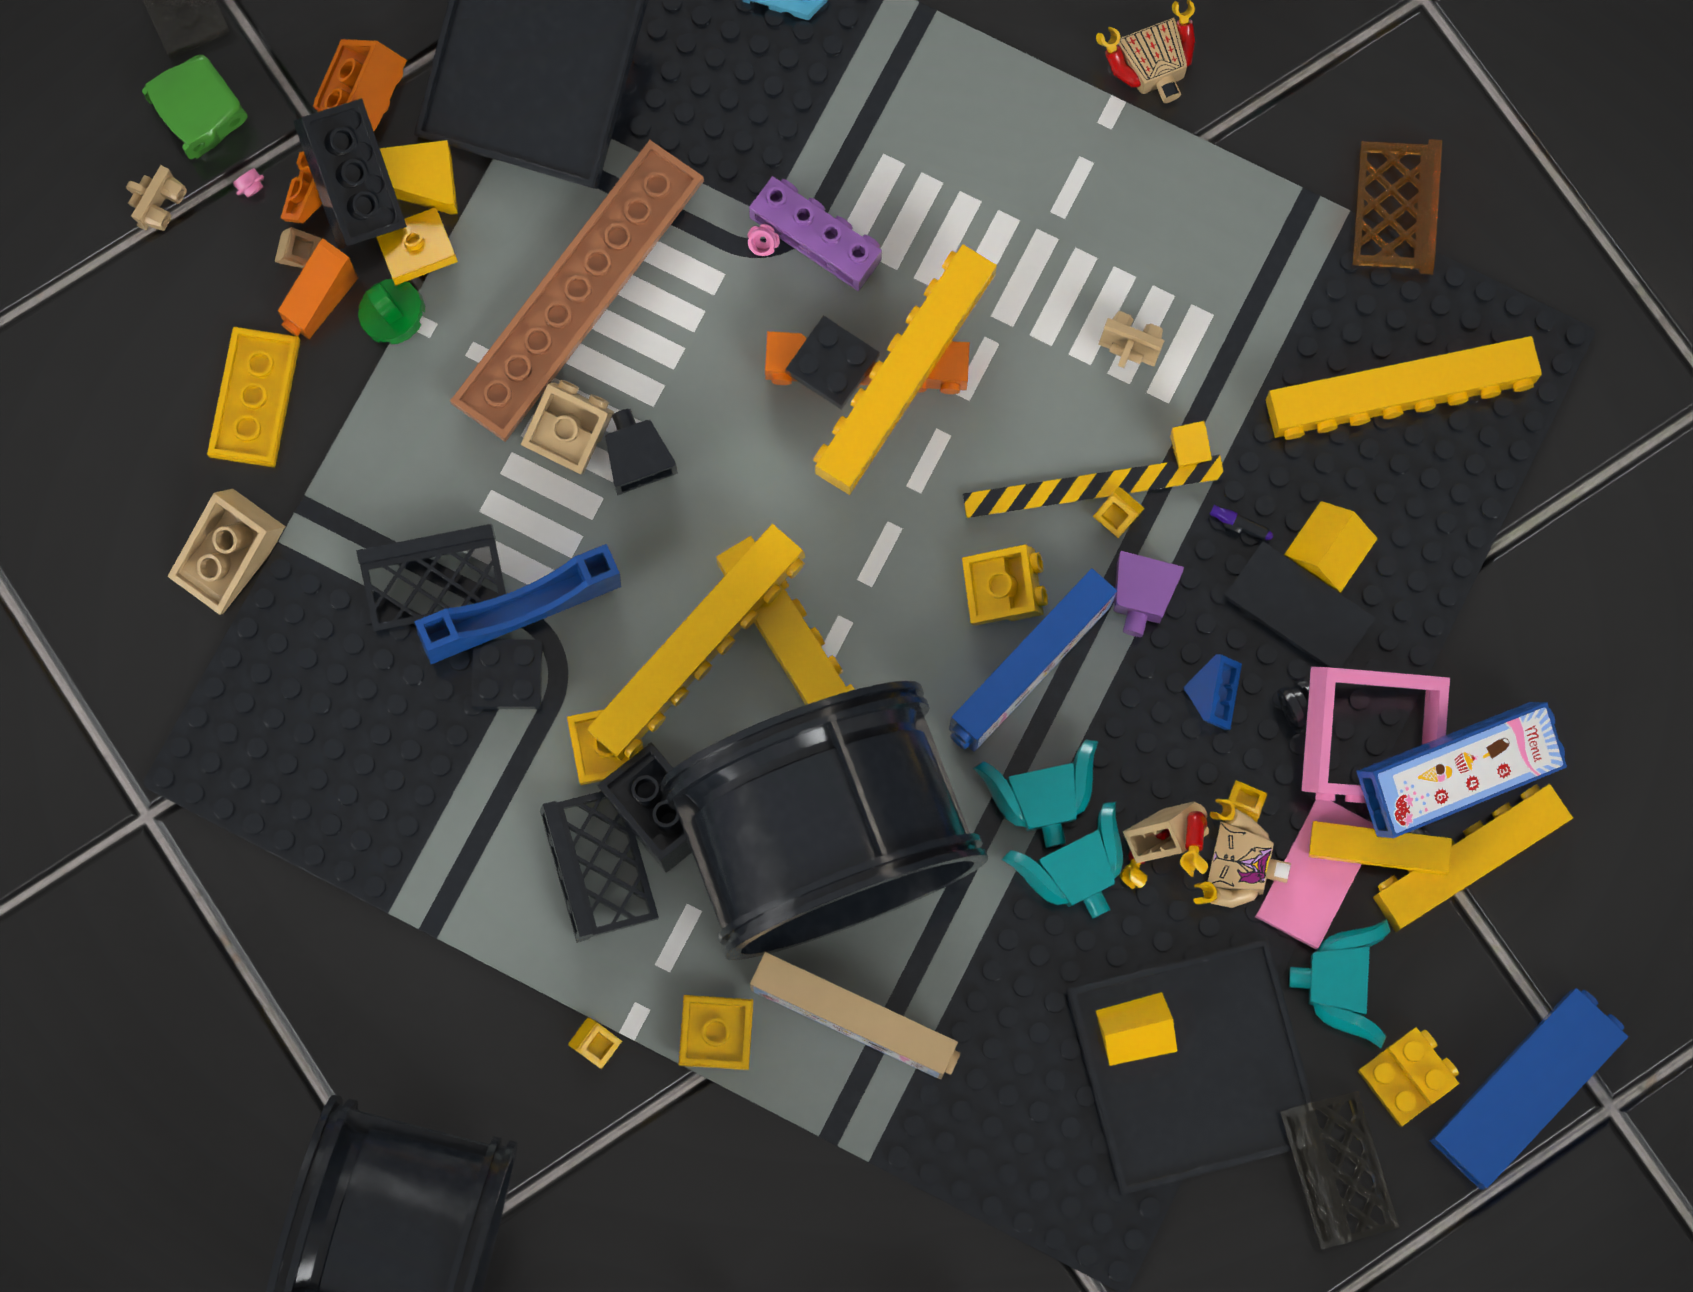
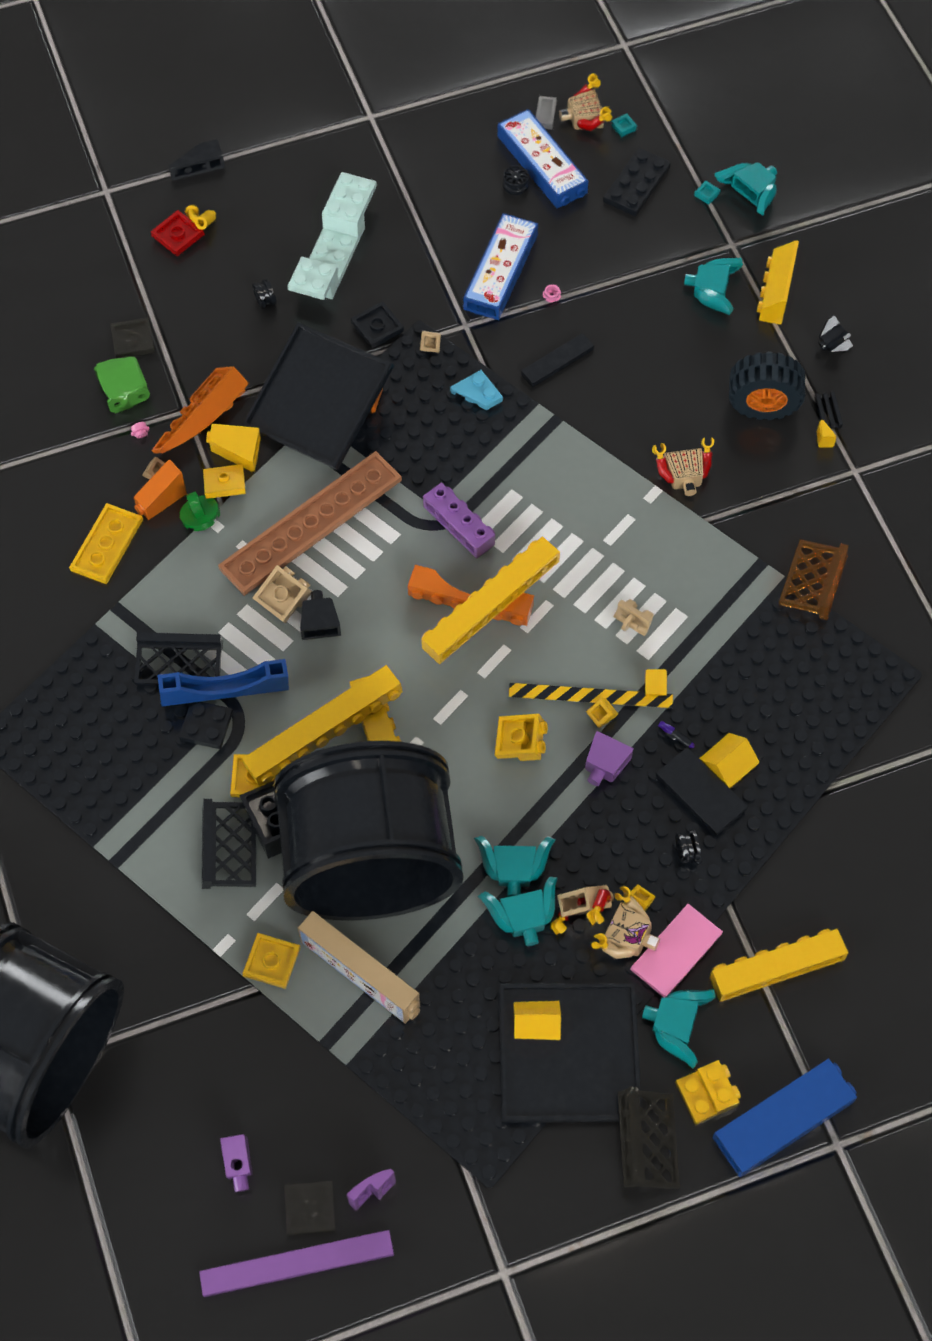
camera: 15 degrees right, 15 degrees down
(150, 195) = (82, 424): tan hips -> none
(225, 549) = (62, 620): tan slope -> none
(349, 173) = (197, 431): black slope -> none
(594, 1042) = (196, 952): yellow slope -> none
(763, 248) = (422, 517): bright pink plate -> none
(832, 362) = (448, 588): black plate -> none
(1031, 661) = (525, 782): blue brick -> none
(1215, 690) = (637, 827): blue slope -> none
(1321, 719) = (703, 829): bright pink window -> none
(1363, 847) = (719, 942): yellow tile -> none
(1403, 387) = (794, 677): yellow brick -> none
(1462, 769) = (782, 904): brick -> none

